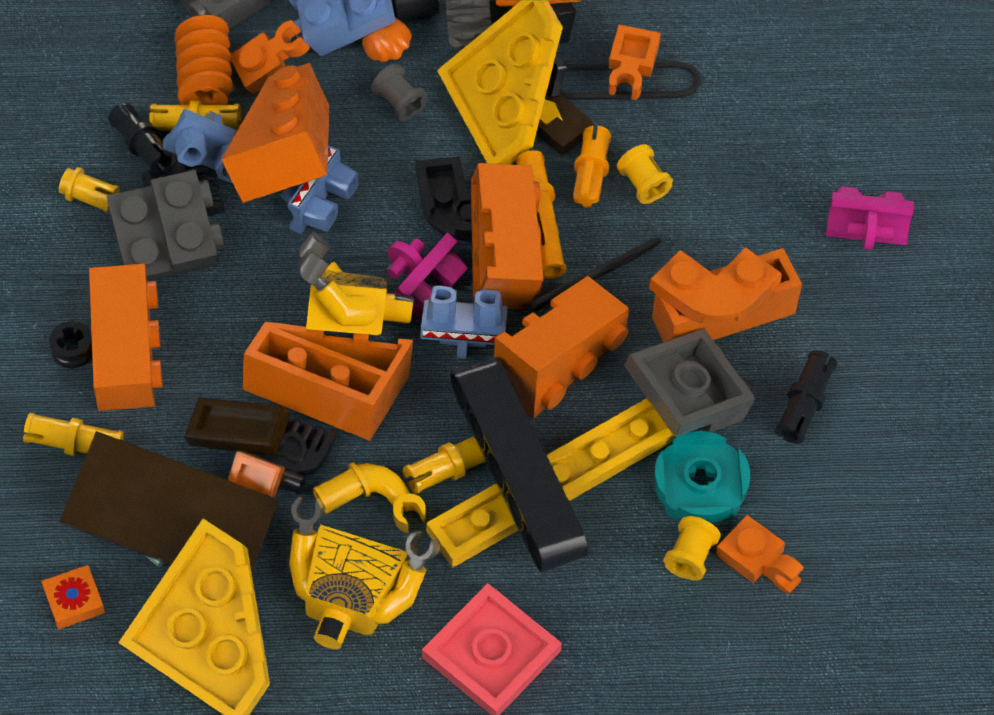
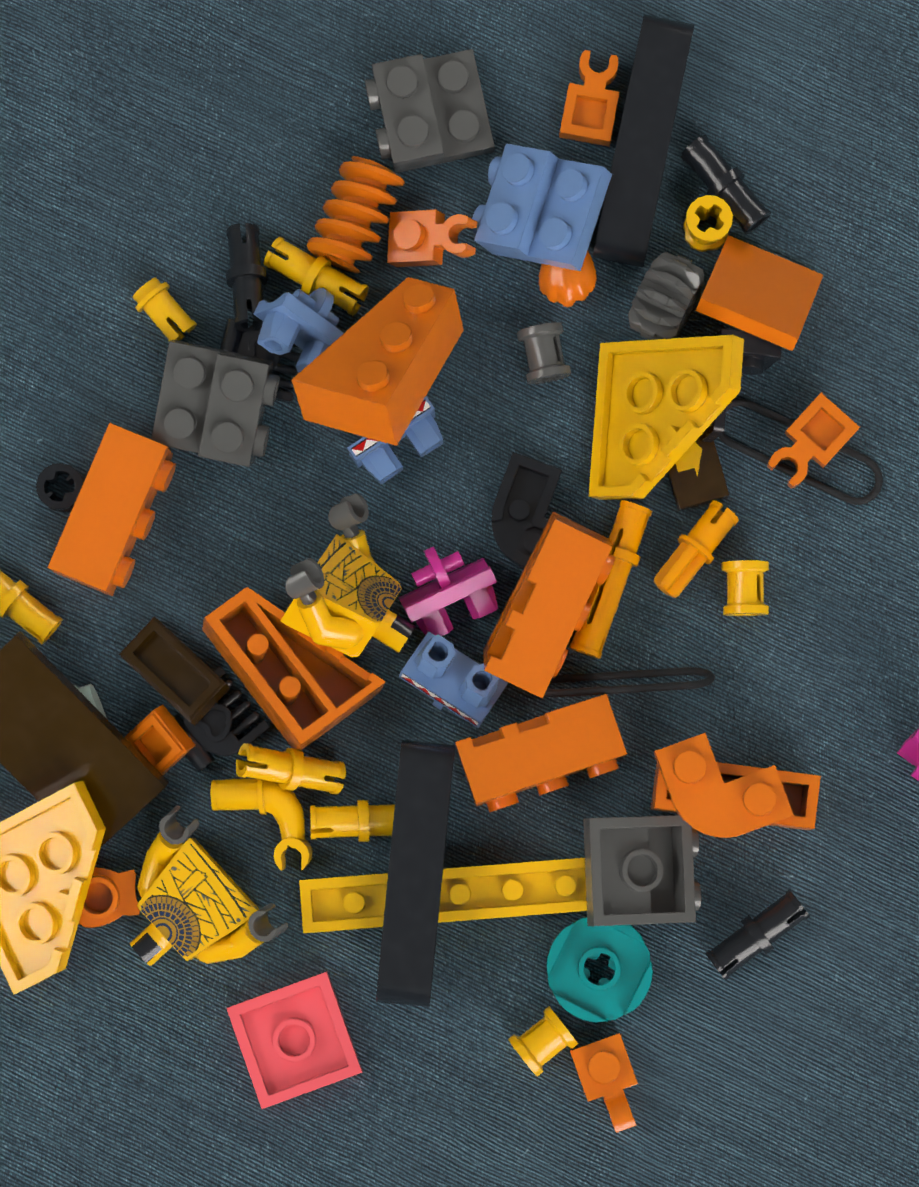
camera: 35 degrees right, 25 degrees up
(278, 615) = (109, 897): none -> orange animal
(372, 444) = (290, 769): none -> yellow pin

